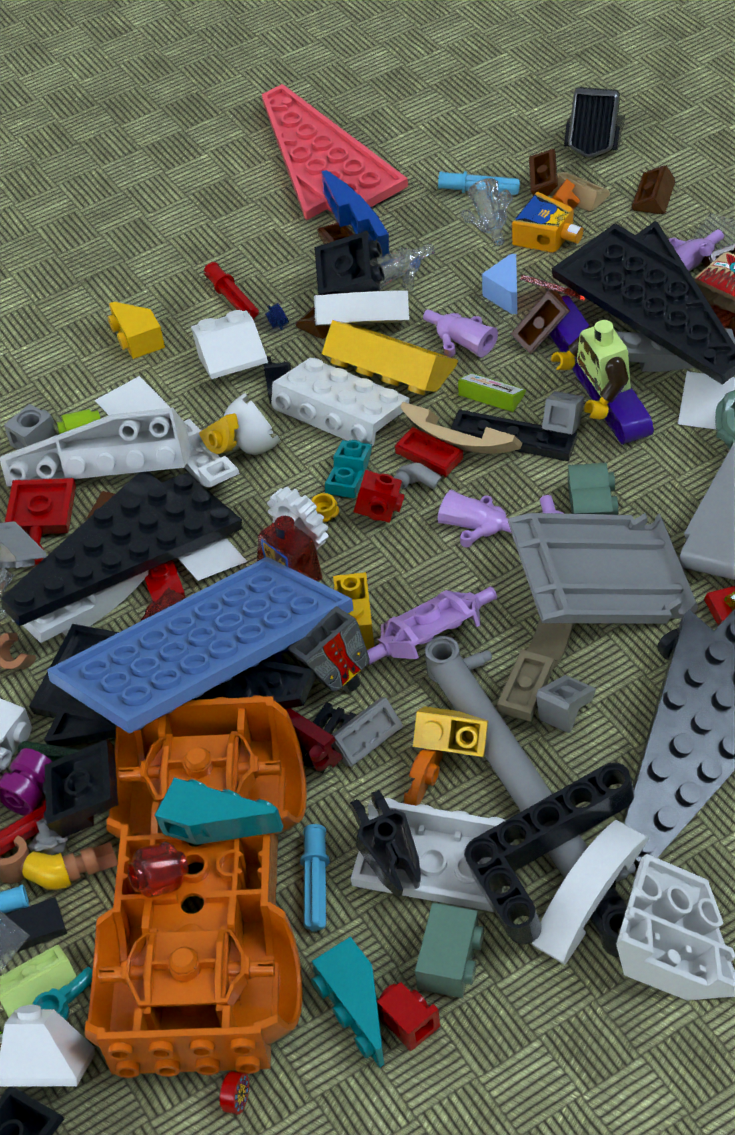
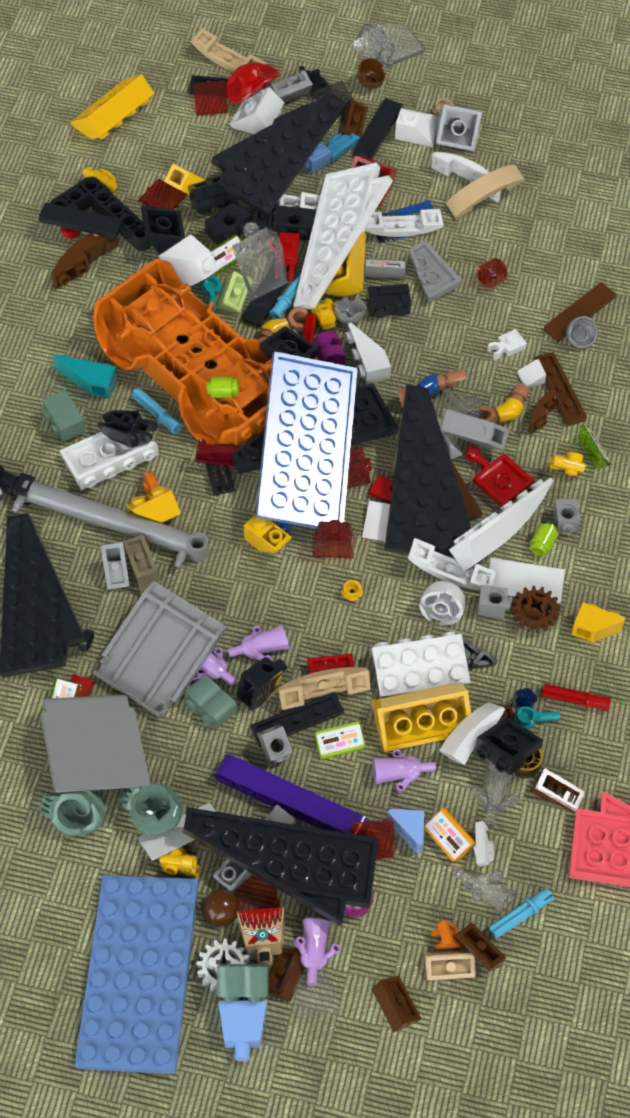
camera: 130 degrees right, 10 degrees up
(157, 869) = (202, 325): clear red head -> none
(172, 373) = (535, 609): none -> reddish brown gear
(201, 403) = (490, 609): none -> light grey brick
(209, 815) = (205, 359): teal slope -> none
(220, 435) = (449, 575): yellow plate -> none
(228, 344) = (520, 645): white slope -> none
(231, 748) = (223, 387): none -> lime brick
(293, 301) = (529, 716): none -> teal plate
(302, 510) = (347, 557): white gear -> none
(334, 651) = (243, 500): dark grey torso -> none
(349, 468) = (366, 626): teal slope -> none
(353, 210) = (569, 803): blue slope -> none
(366, 731) = (198, 485): light grey plate -> none
(379, 496) = (325, 601): red brick -> none
(407, 1015) = (57, 381): red brick -> none
(417, 472) = (319, 649): light grey arm -> none
(425, 621) = (210, 566): lavender plate -> none
(458, 233) = (483, 848): none -> white plate
(475, 258) = (449, 835): none -> slope
(519, 470) = (260, 682): none -> black torso
(541, 321) = (352, 802): reddish brown slope -> none
(541, 840) = (71, 459): black beam -> none
(545, 225) = (434, 902): light orange torso -> none
(585, 888) = (21, 482): white slope -> none
(594, 121) = (491, 1030): black piece -> none
(603, 361) = (276, 776): torso -> none

